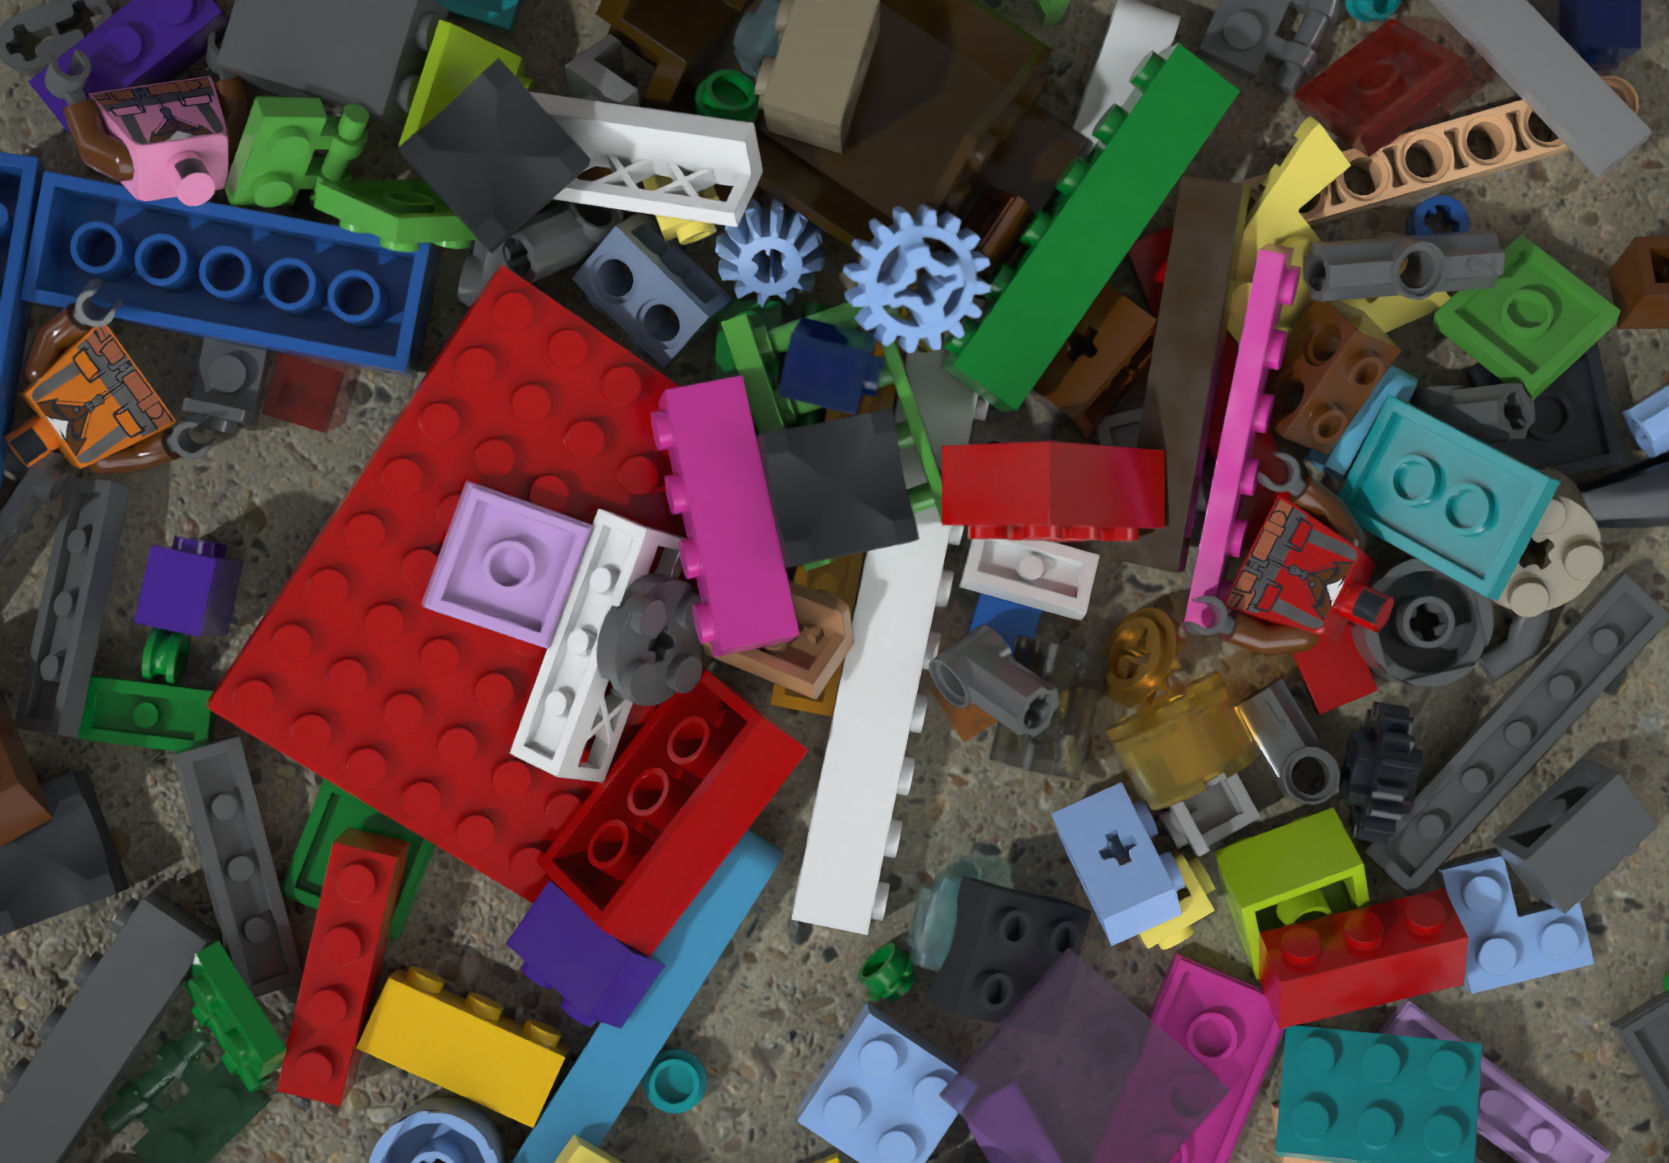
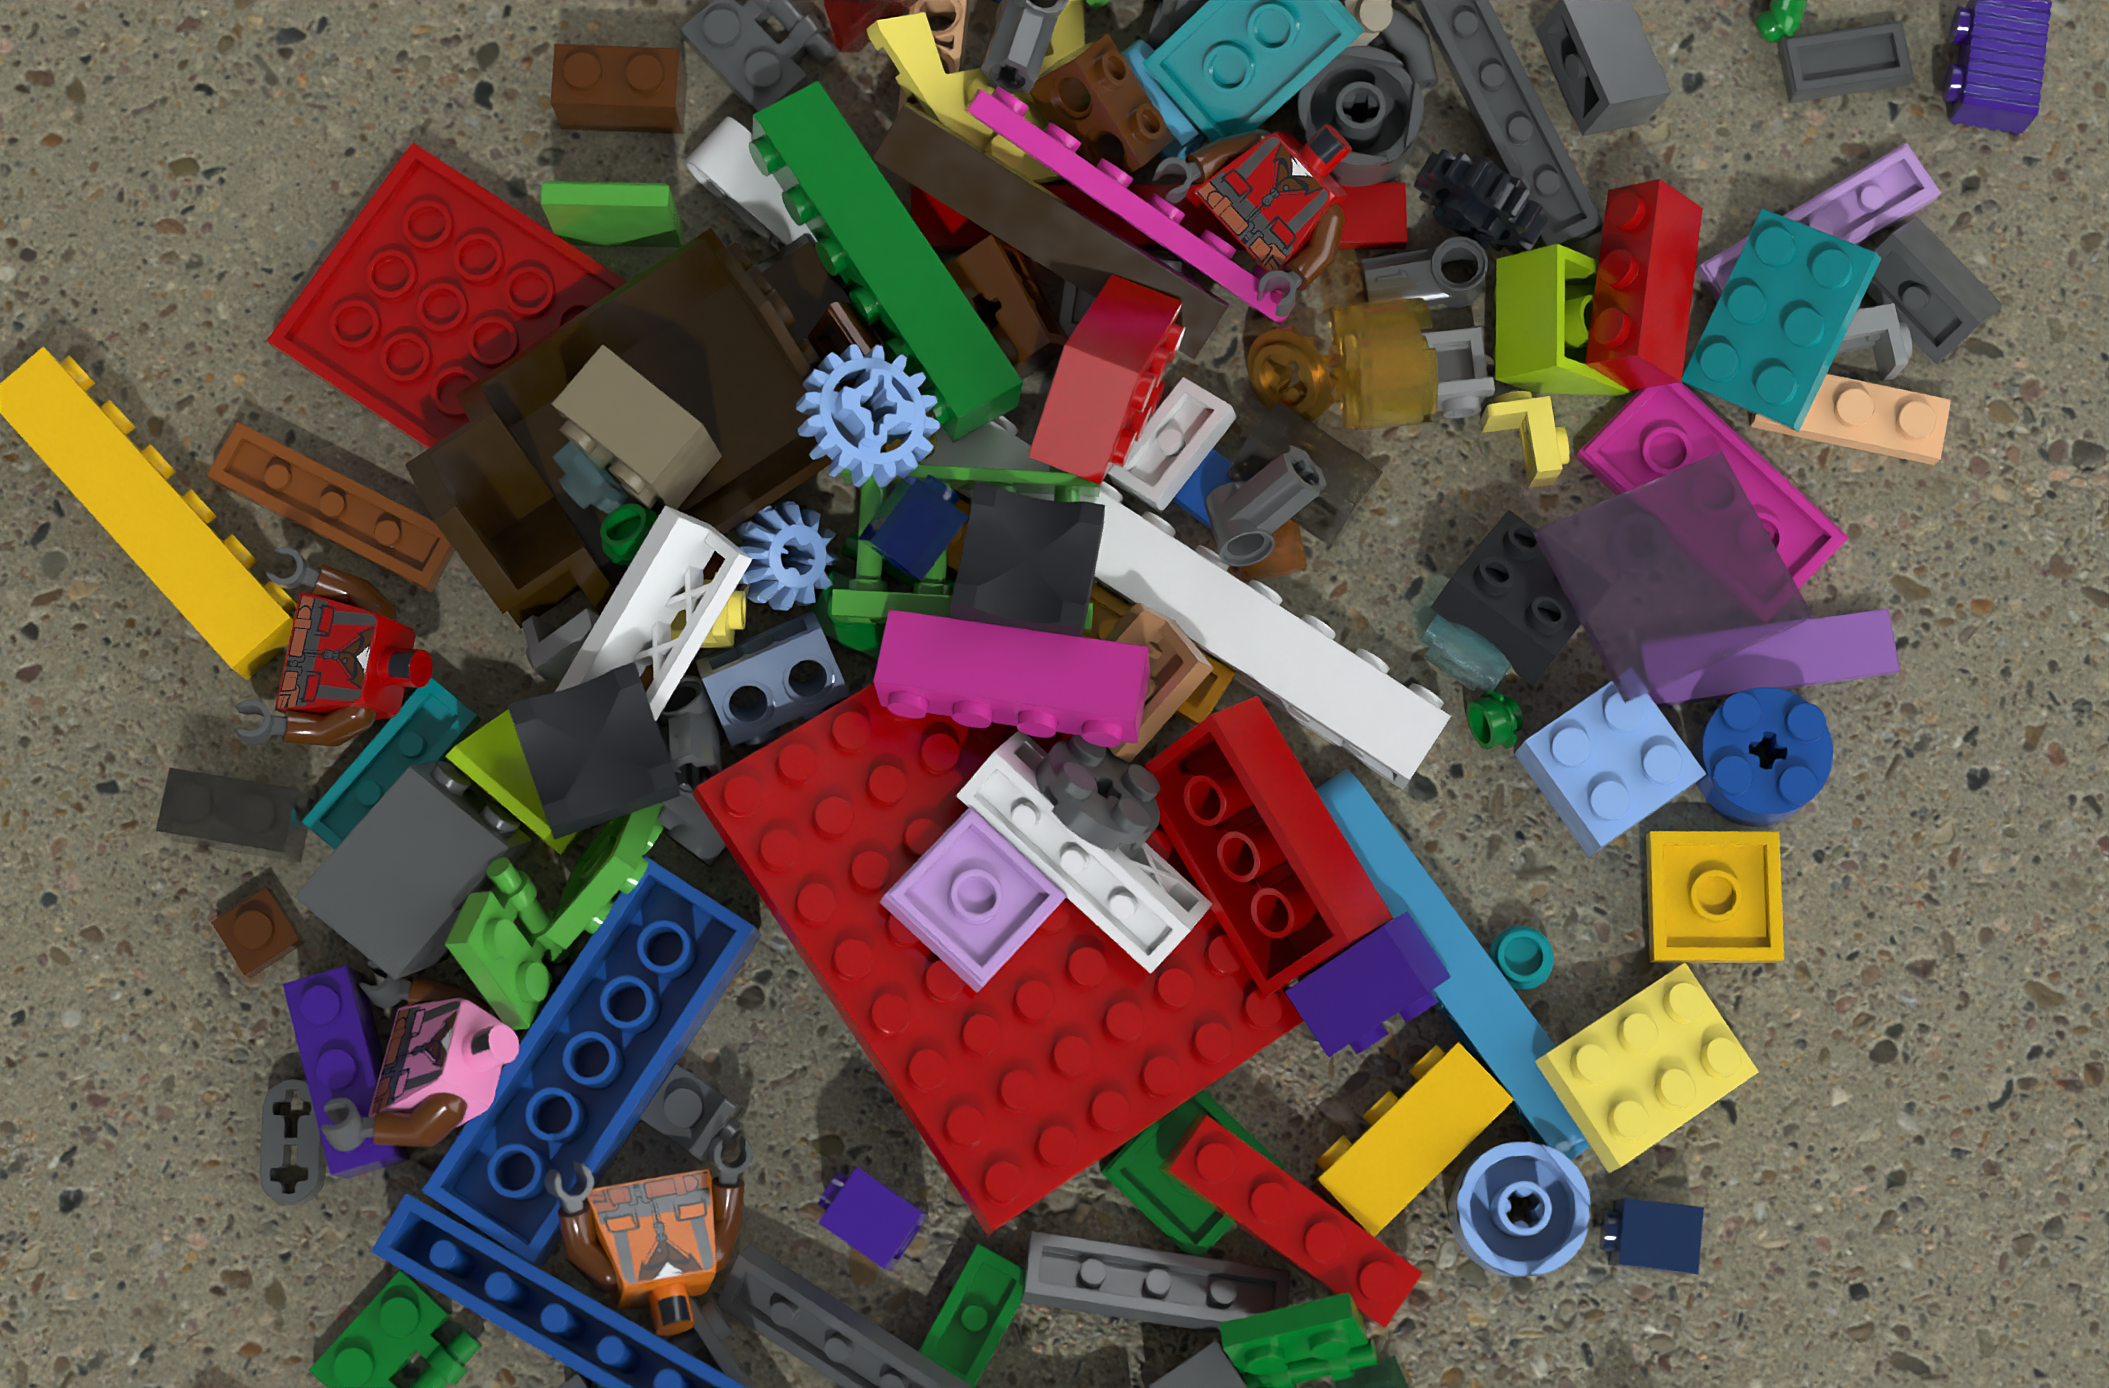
camera: 70 degrees left, 10 degrees down
(165, 655) = (923, 1276): green bush -> none
(303, 393) = (730, 1048): clear red tile -> none
(1125, 896) = (1473, 464): light blue brick -> none
(1508, 944) = (1682, 156): light blue plate -> none

